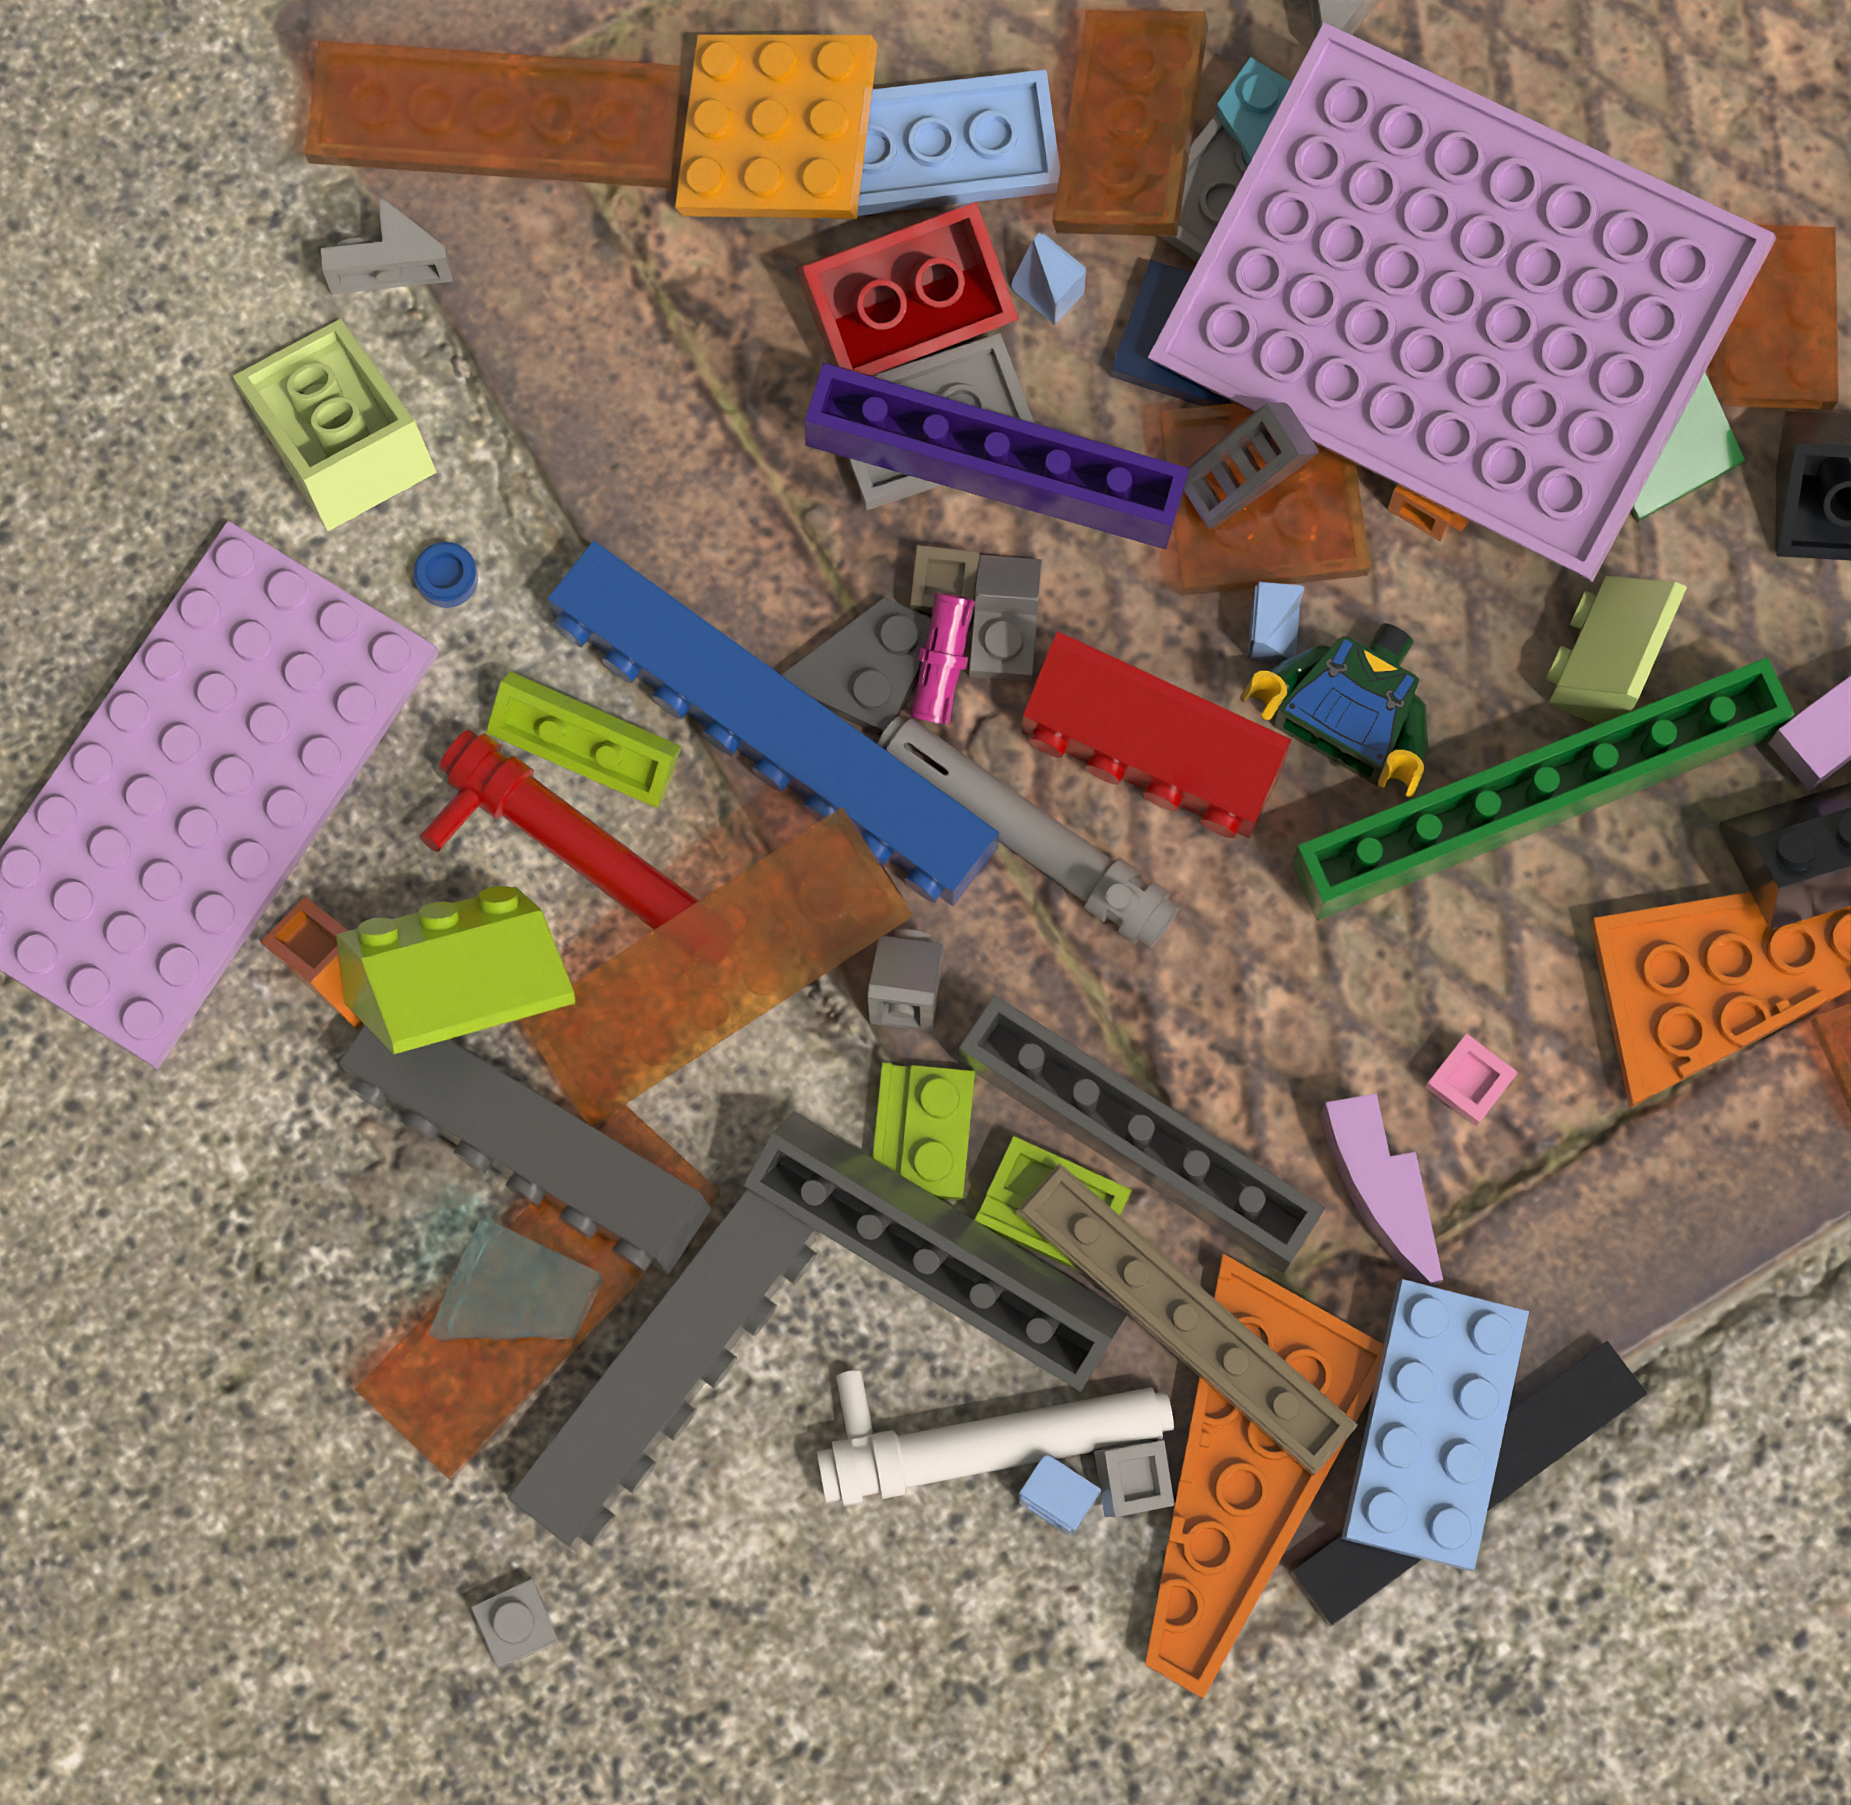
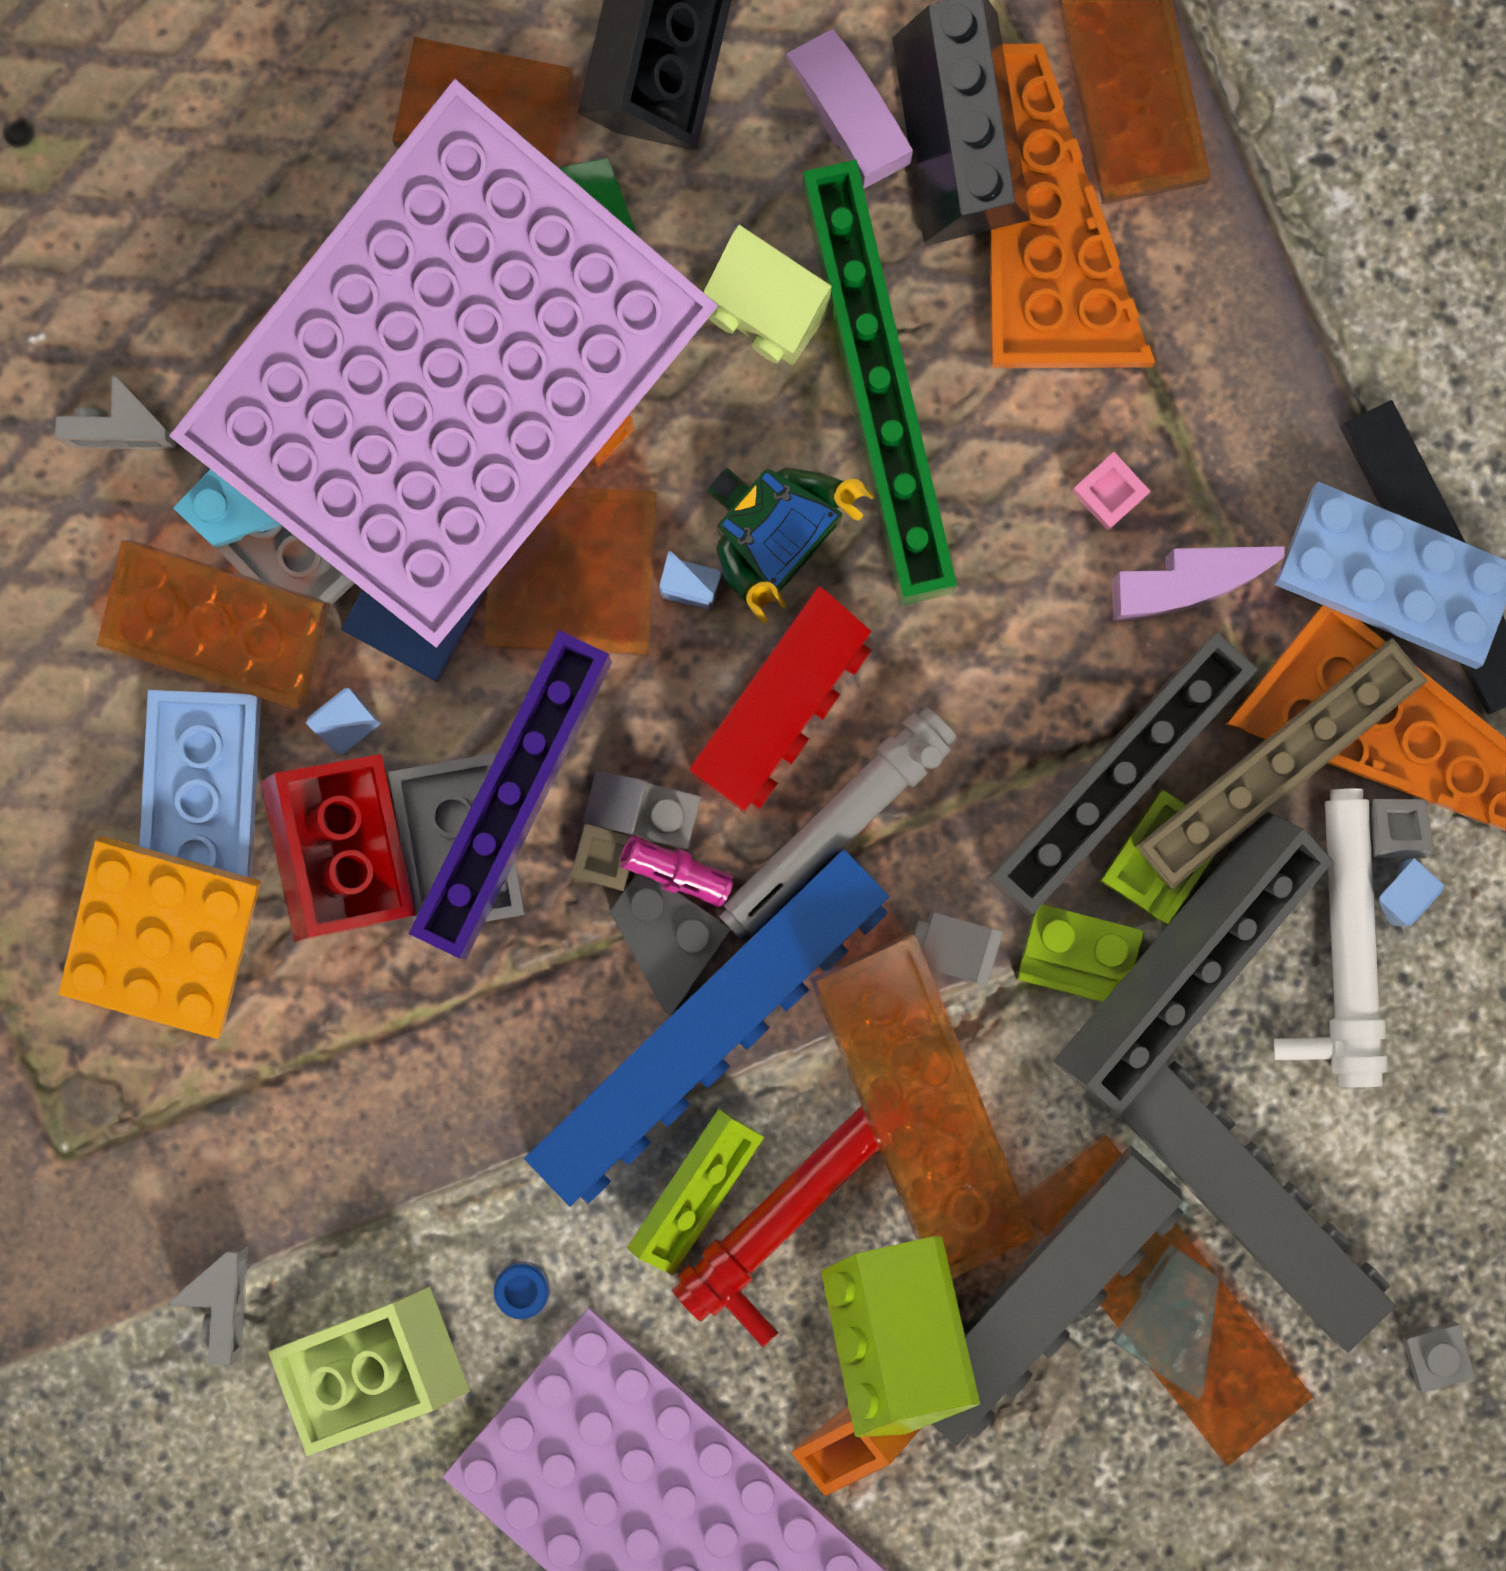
camera: 80 degrees left, 10 degrees up
(494, 114) = (99, 1189): clear orange plate -> none
(1289, 435) = (542, 546): flat silver slope -> none

